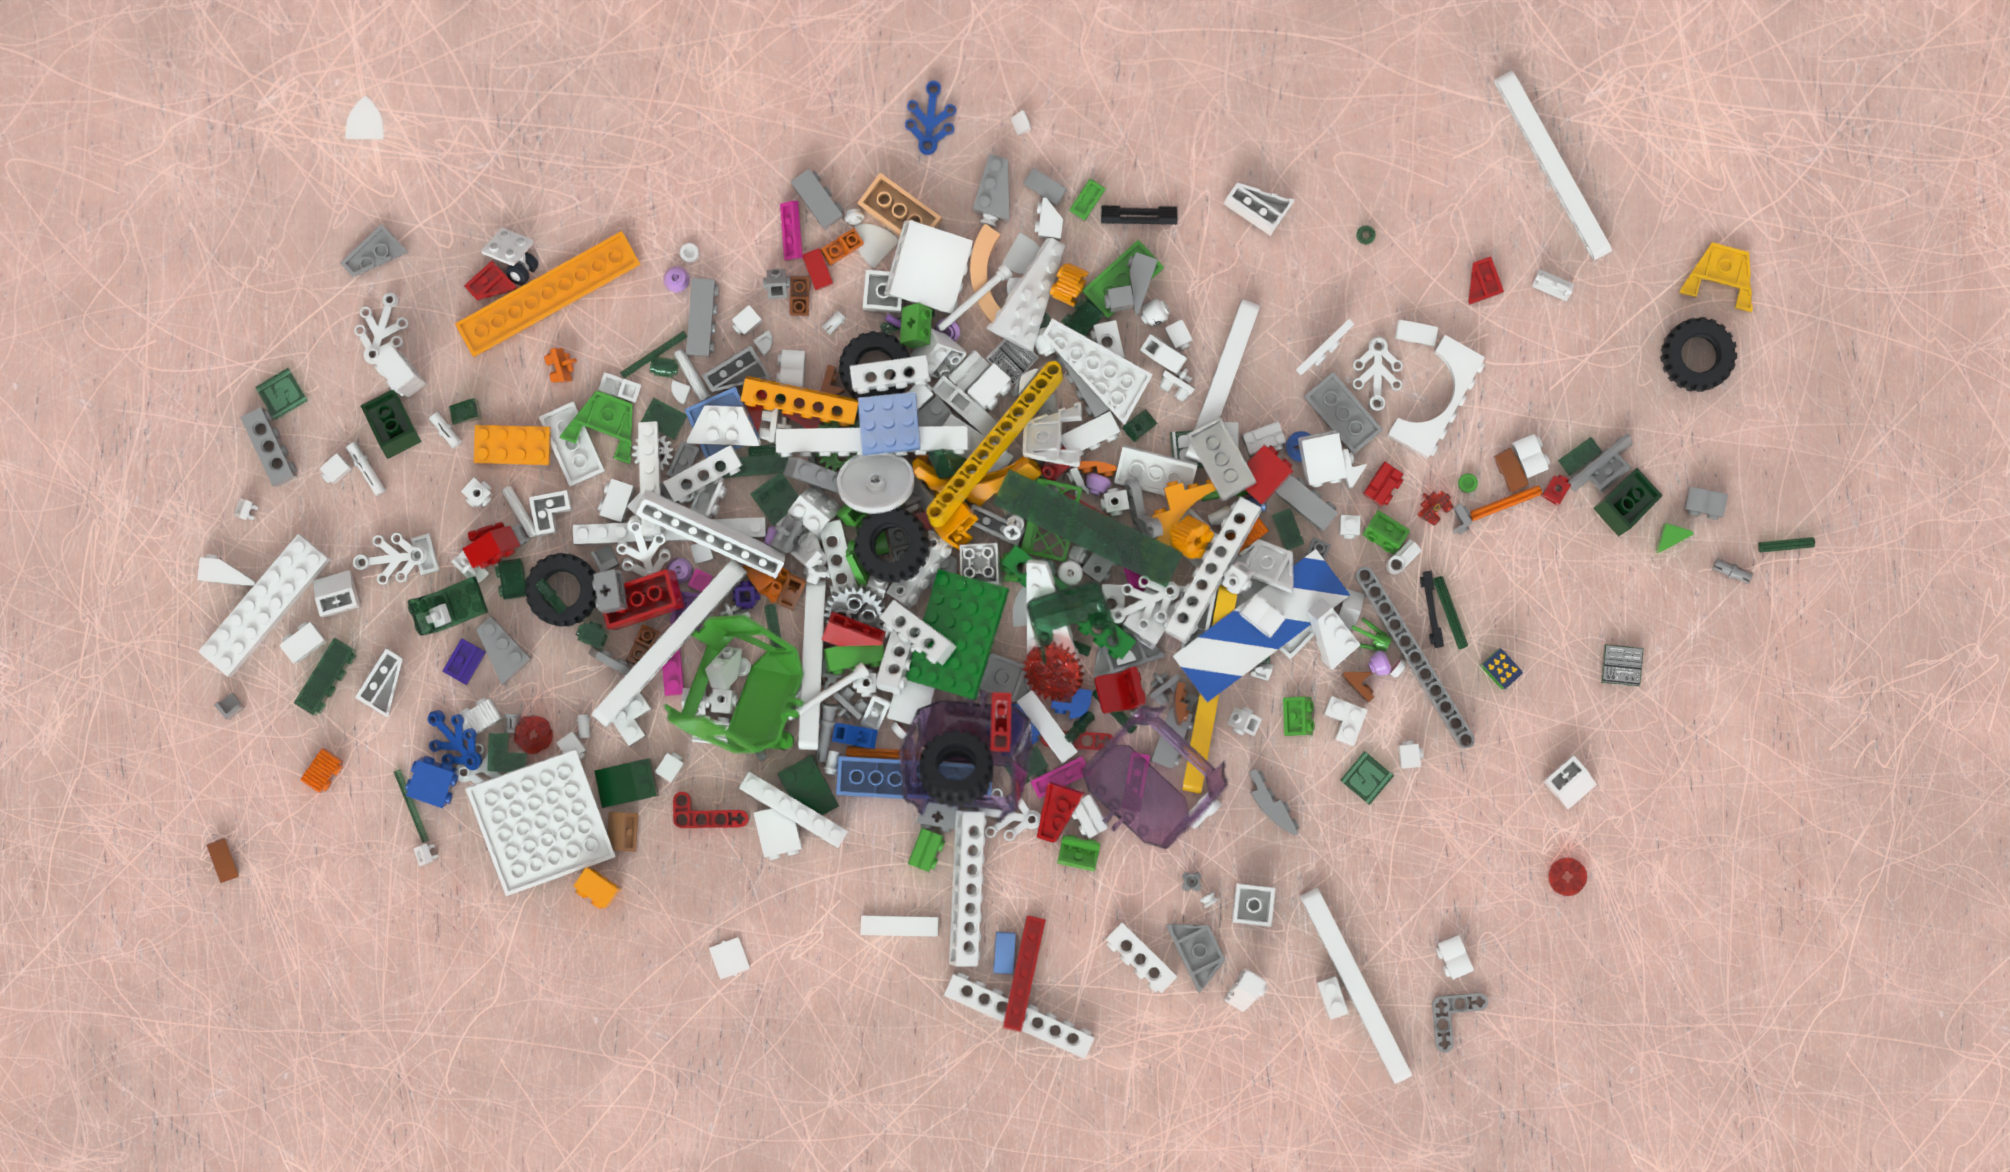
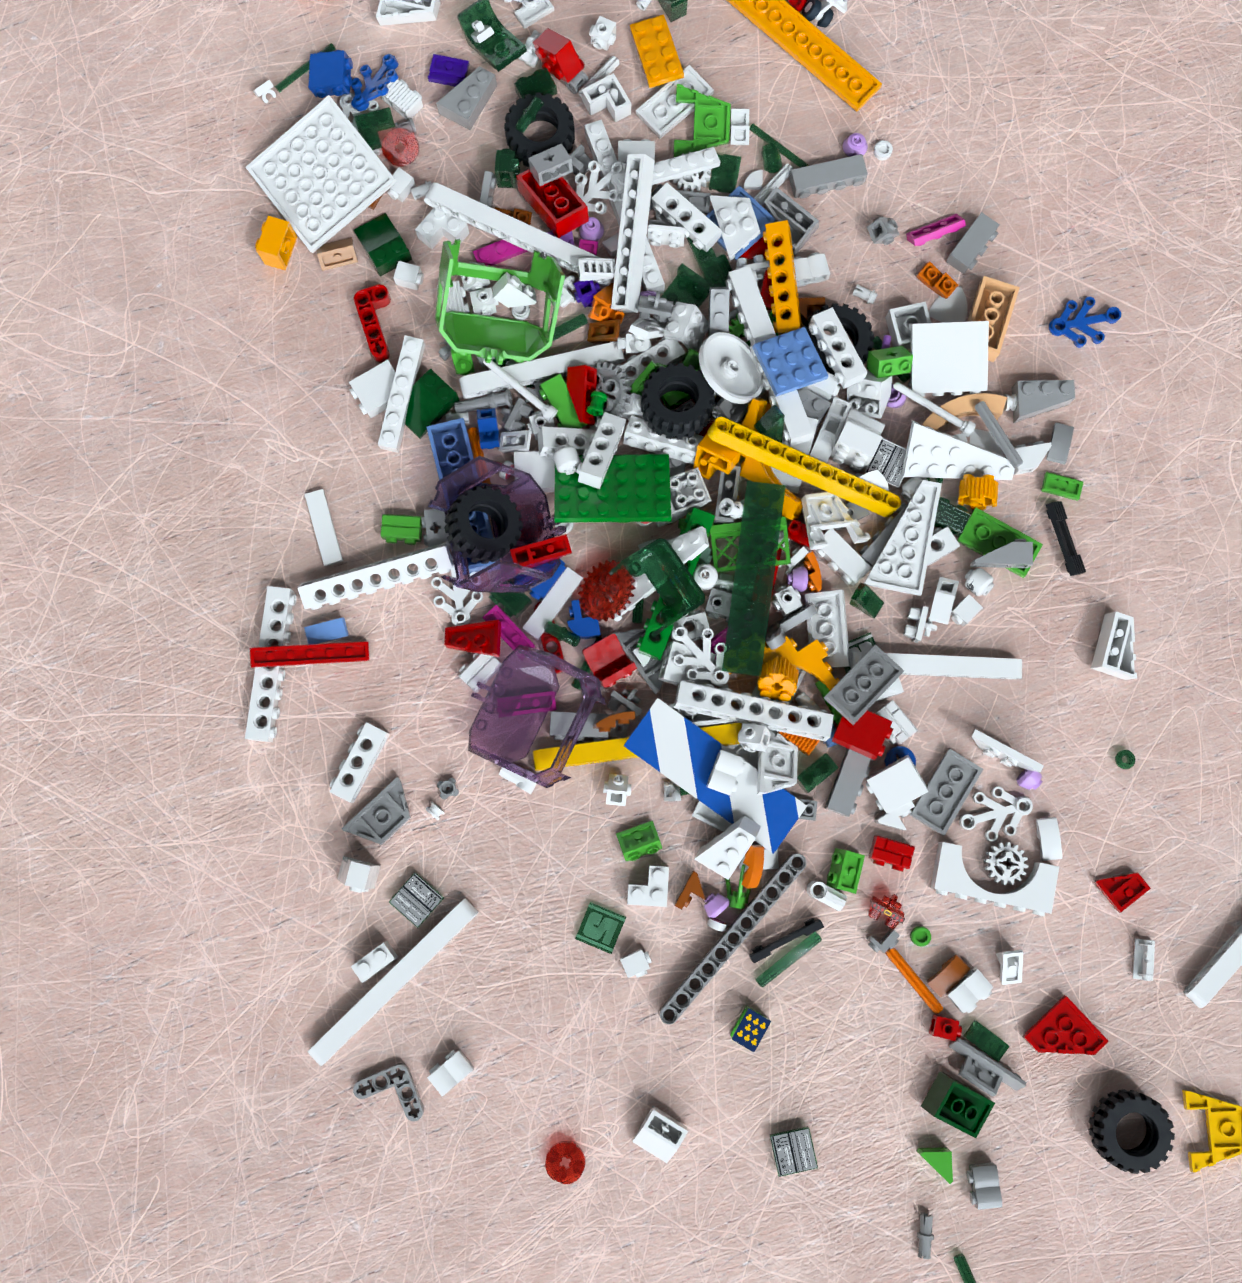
camera: 70 degrees right, 5 degrees down
(562, 363) = (743, 70): orange hips -> none
(727, 594) = (589, 262): none -> white slope
(729, 958) = (249, 384): white piece -> none
(746, 321) = (839, 216): white brick -> none
(764, 342) = (824, 240): white tile -> none
(799, 295) = (879, 257): dark orange slope -> none
(817, 269) = (908, 265): red tile -> none
(854, 216) = (969, 281): white plate -> none
(869, 622) = (597, 403): none -> green bush
(917, 669) = (566, 459): none -> white head
(1005, 677) = (587, 547): light grey wing -> none
(1020, 245) = (998, 434): none -> light grey axle
(1021, 123) = (1110, 404): white slope -> none
(1078, 853) = (442, 671): bright green bracket -> none
(1119, 299) = (982, 540): light grey brick -> none
(1253, 905) = (441, 854): white brick -> none
(1277, 810) = (540, 849): light grey slope -> none
(1287, 941) = (416, 899): none -> light grey tile
(1349, 526) = (839, 832): white brick -> none
(1352, 614) = (755, 860): none -> orange slope
(1357, 332) = (1029, 779): none -> lavender cone
(1435, 385) = (1005, 871): none -> white gear
(1521, 410) = (1010, 966): none -> white slope
(1594, 381) = (1065, 1031): none -> red plate

